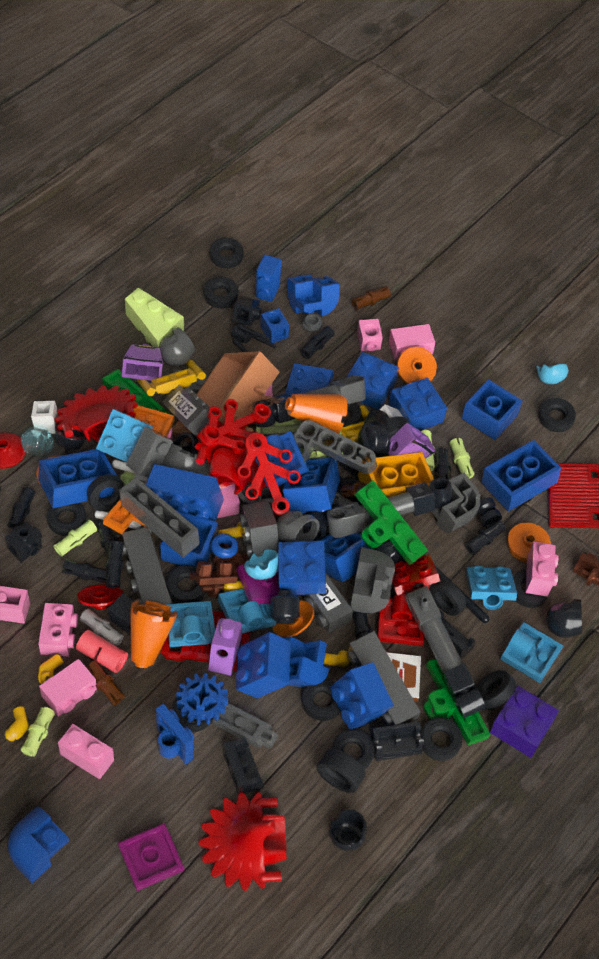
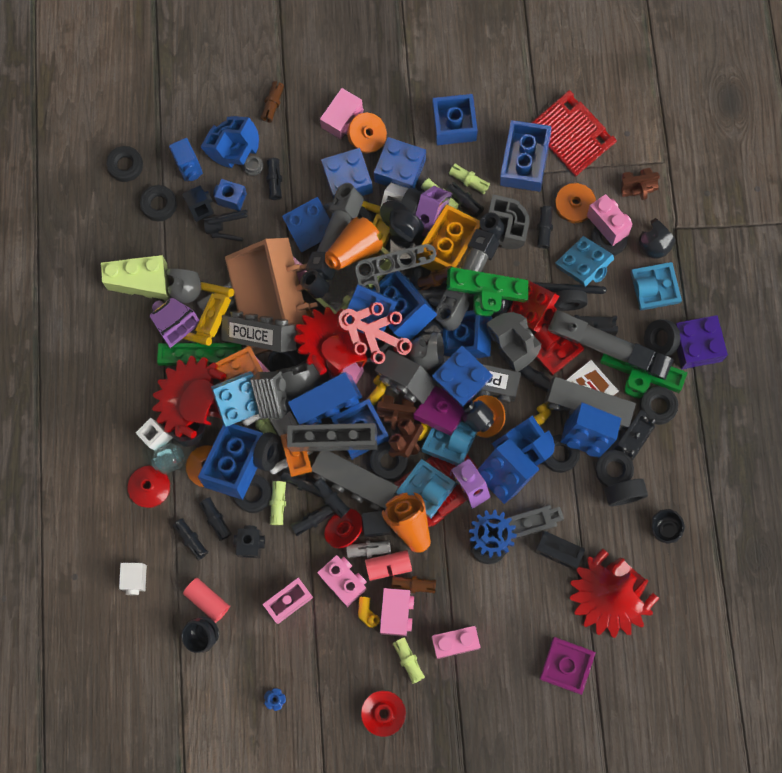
camera: 35 degrees left, 20 degrees up
(20, 725) = (392, 669): yellow arm -> none
(34, 843) = (491, 732): blue brick -> none
(173, 731) = (511, 574): blue plate -> none
(213, 436) = (314, 321): red plant -> none
(224, 539) = (391, 403): blue piece -> none
(263, 566) = (434, 401): medium azure hair -> none
(369, 335) = (302, 130): bright pink brick -> none
(488, 512) = (535, 205): black wheel -> none
(552, 374) = (463, 45): medium azure hair -> none
(553, 424) = (494, 89): black tyre -> none

